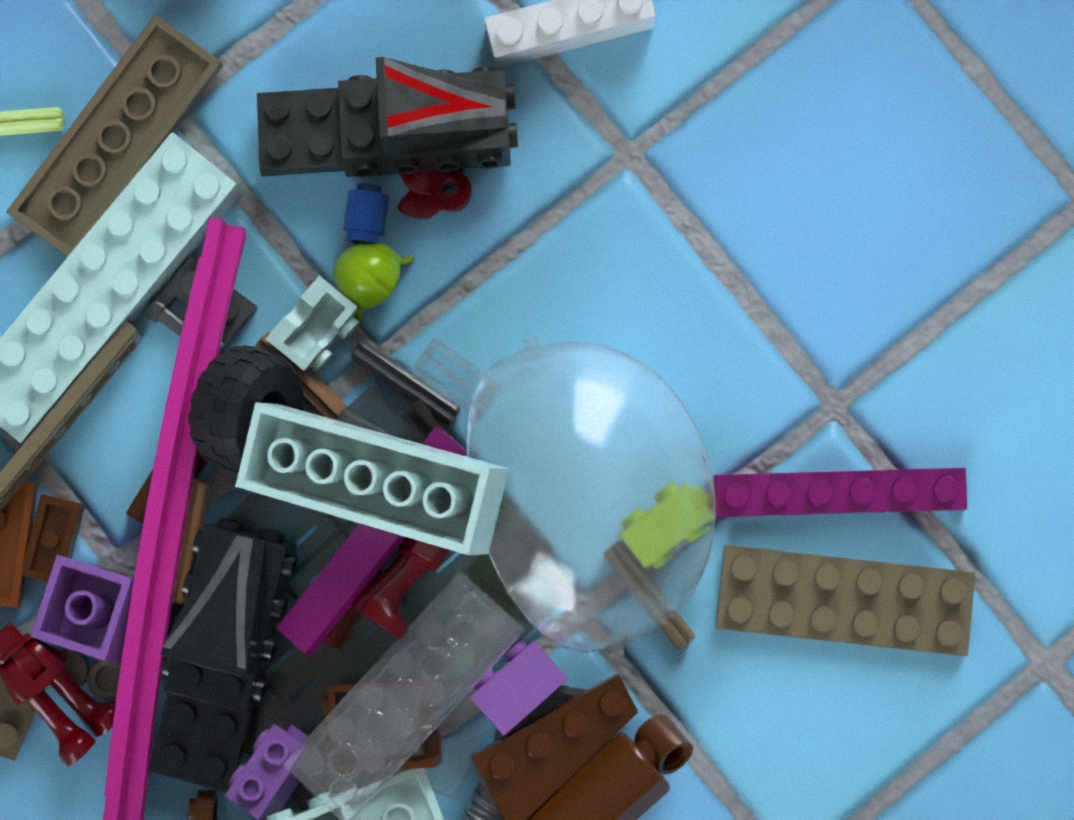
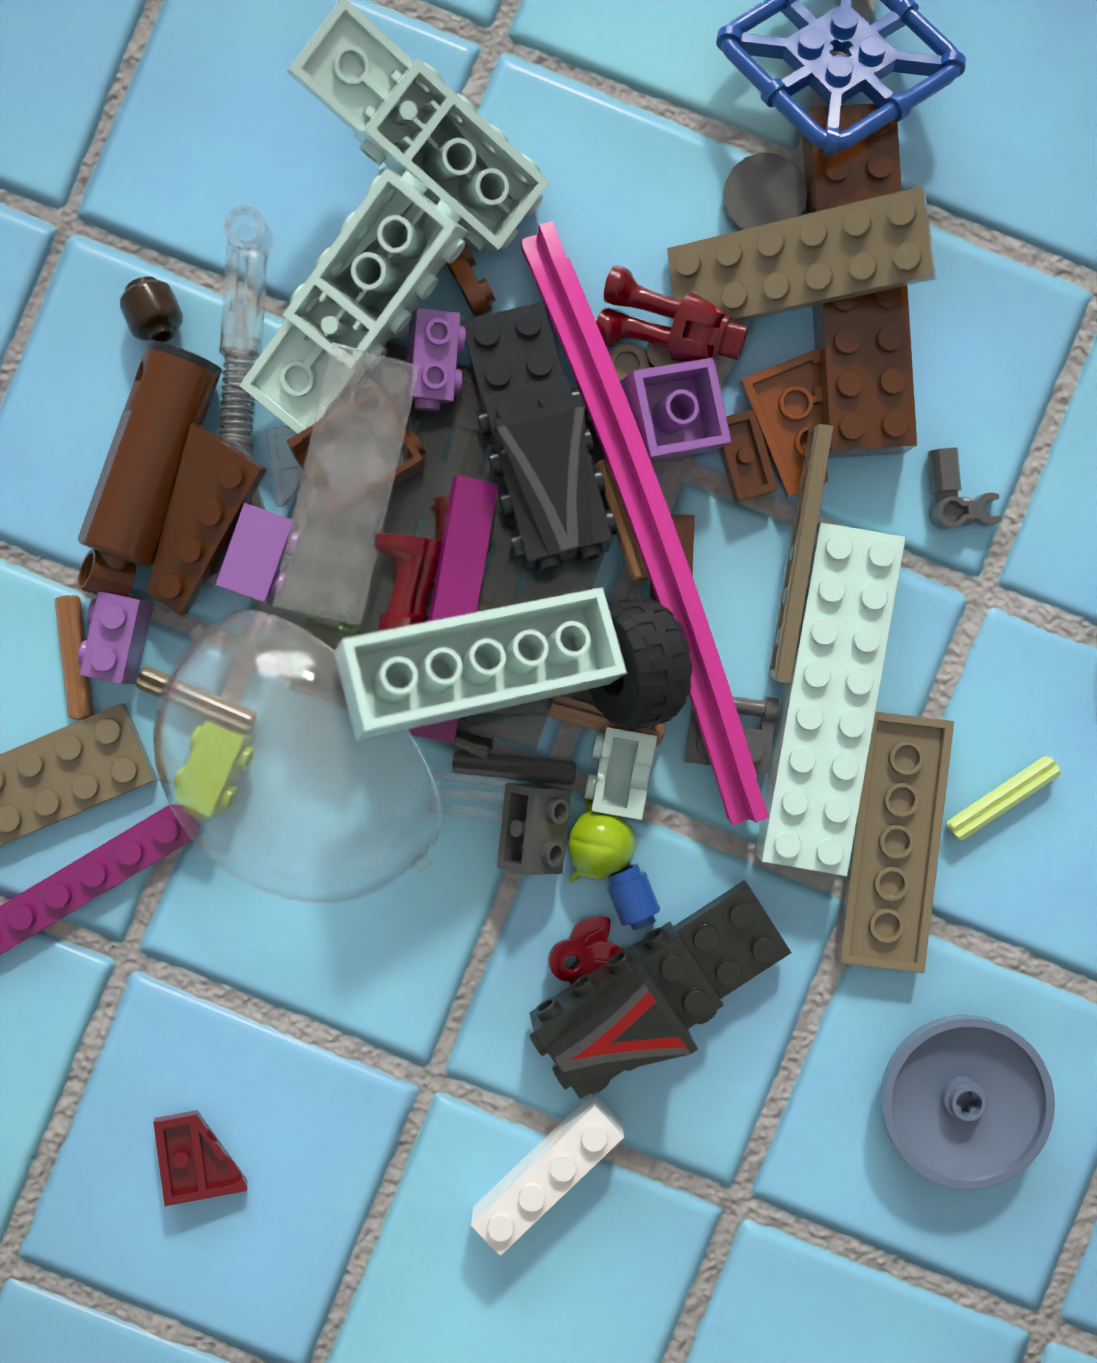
camera: 150 degrees right, 5 degrees up
(416, 319) = (533, 829): none -> dark grey brick
(687, 687) = (115, 638): none -> medium lavender brick
(736, 693) = (70, 639): none -> medium nougat axle
(870, 199) = (193, 1160): none -> dark red wing

